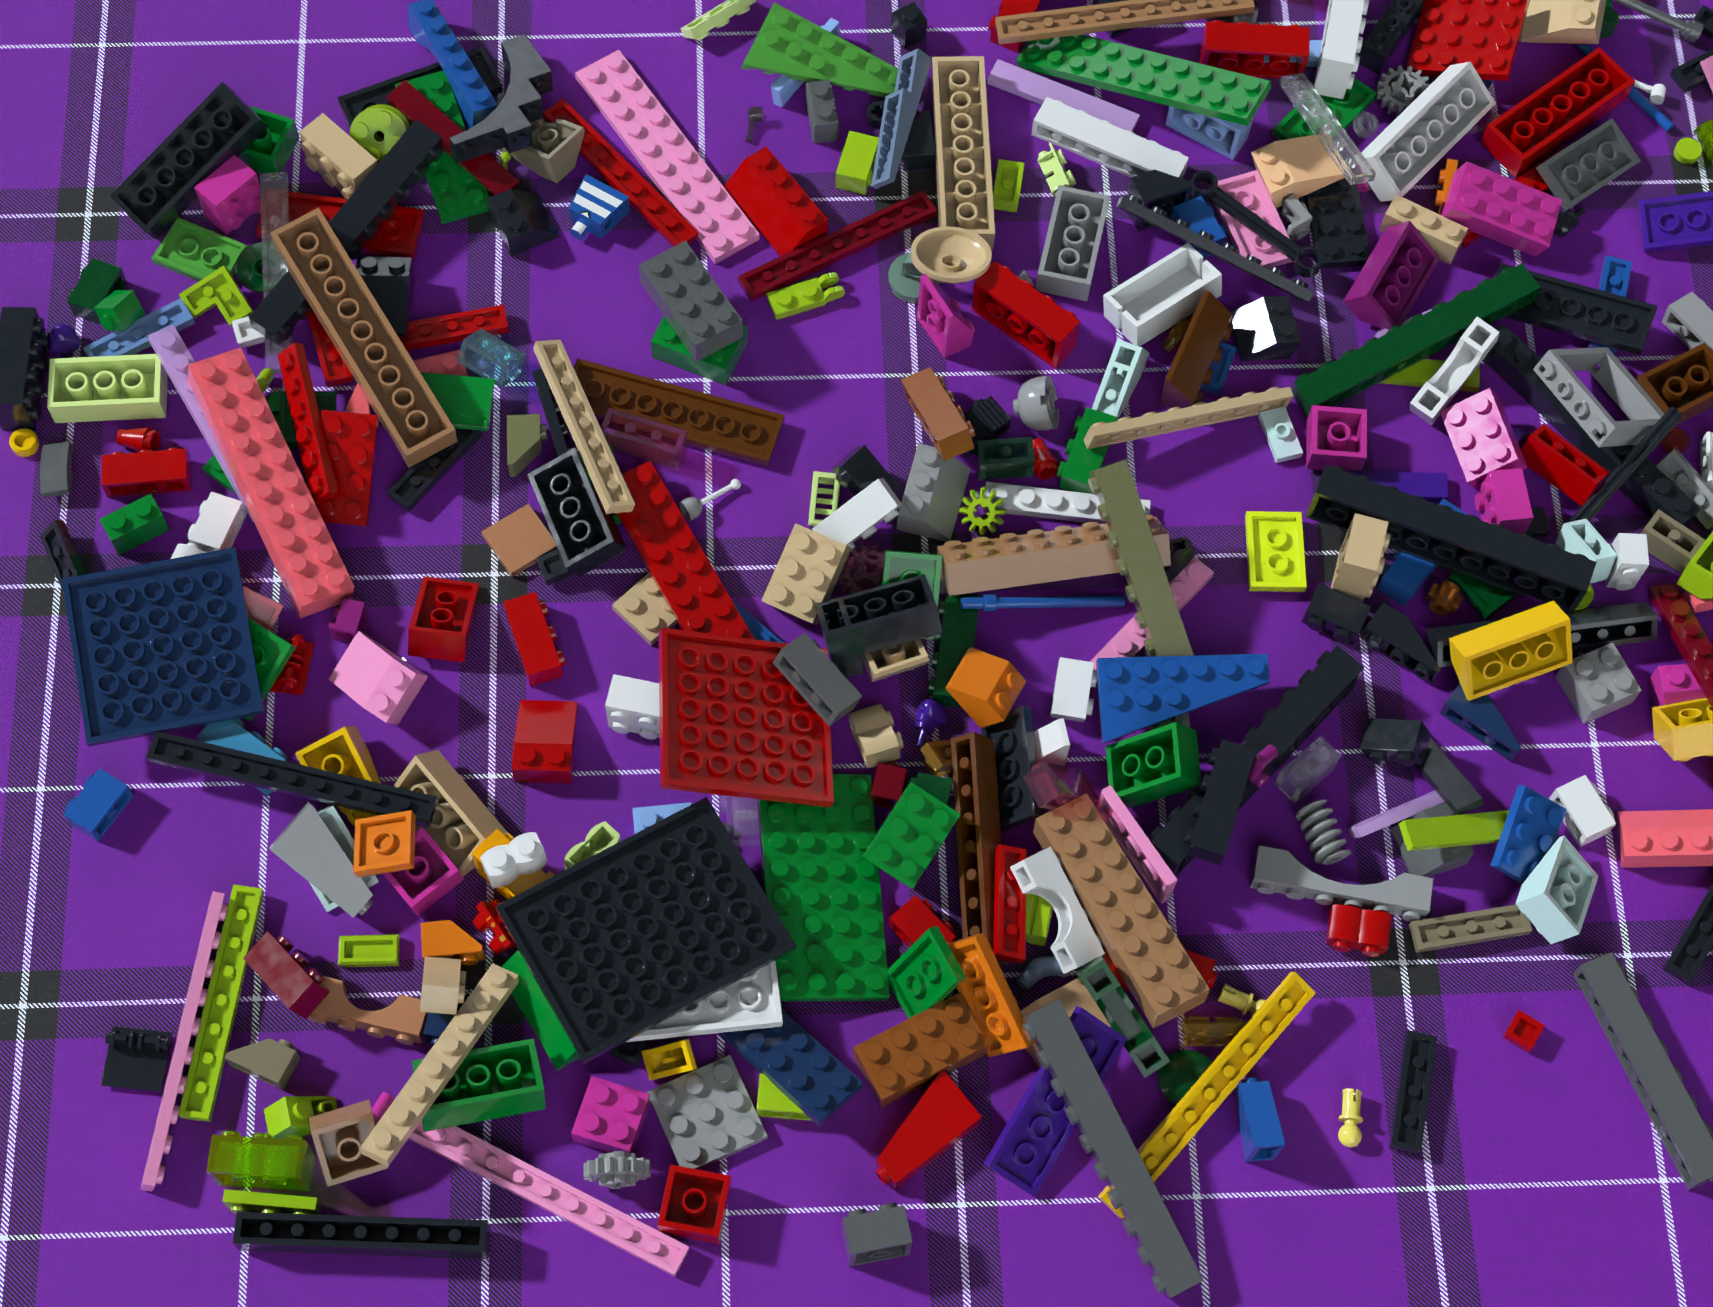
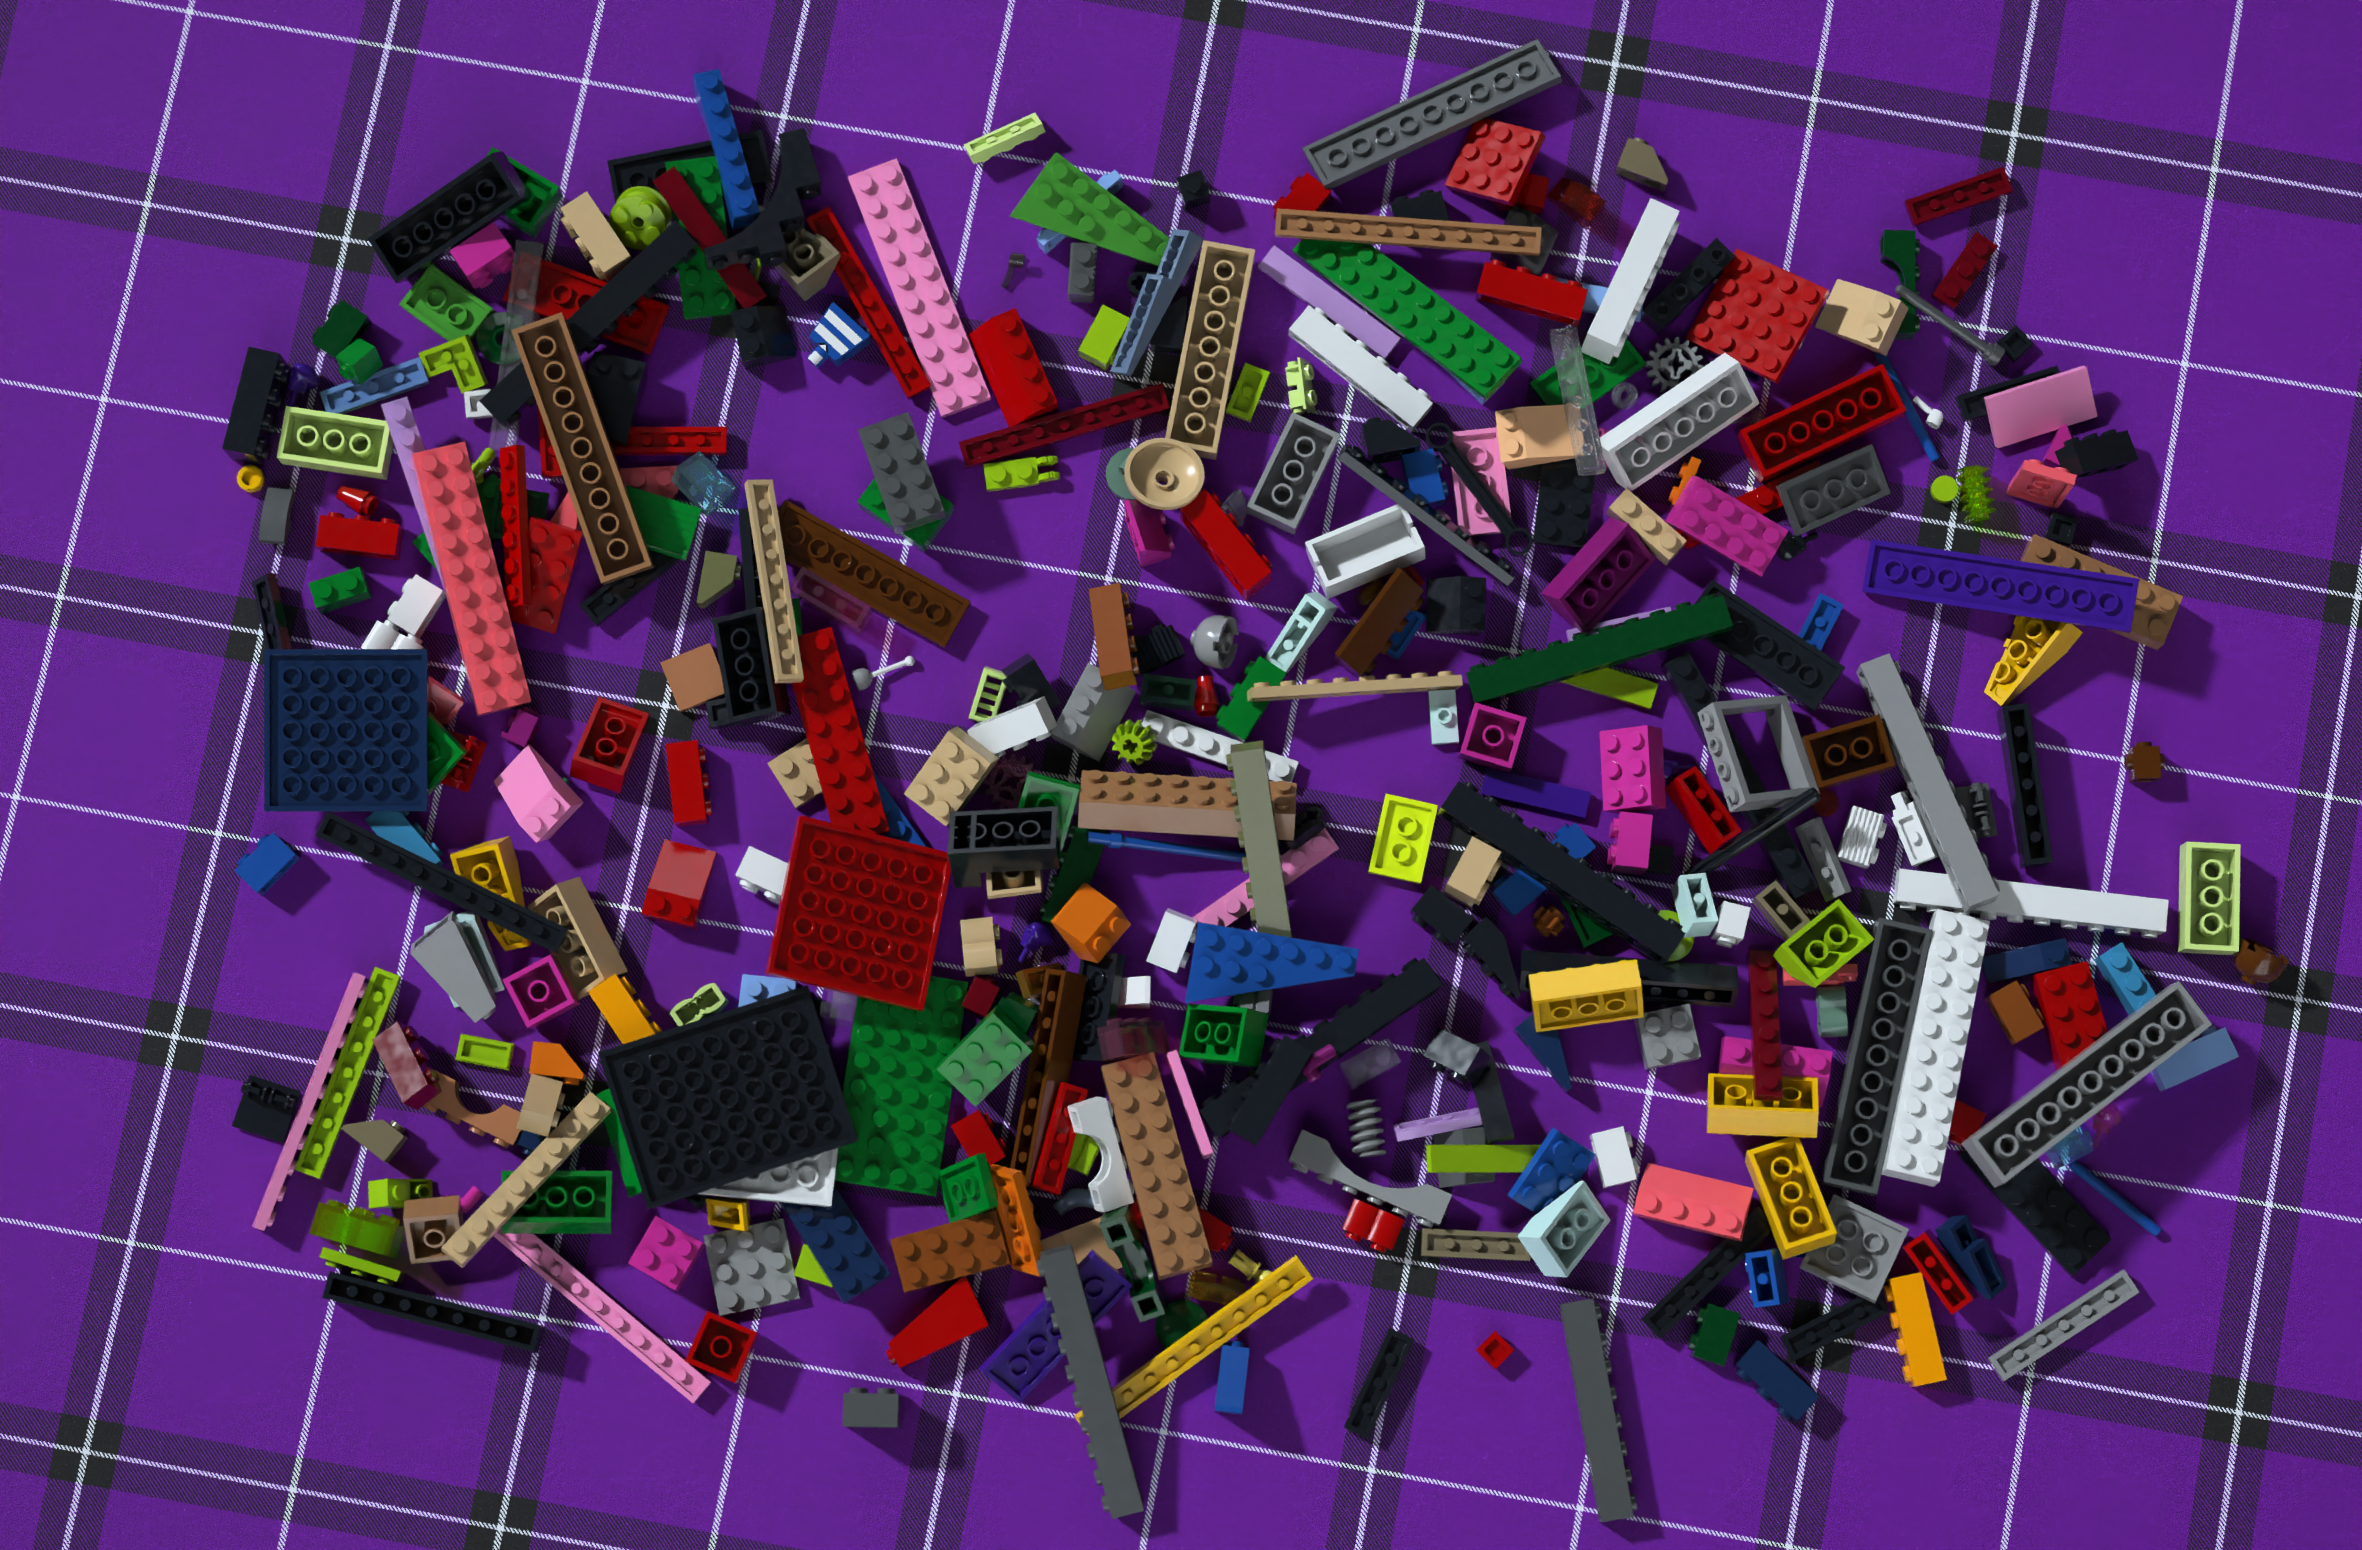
camera: 15 degrees right, 15 degrees up
(384, 843) = (513, 965): orange plate -> none
(489, 919) = (596, 1043): red hips -> none
(520, 857) = (615, 1013): white brick -> none
(616, 1169) = (661, 1303): light grey gear -> none
(817, 679) = (935, 888): dark grey brick -> none
(1297, 216) = (1526, 483): light grey bracket -> none
(1349, 1133) = (1311, 1408): light yellow pin -> none
(1455, 371) = (1624, 694): white arch -> none

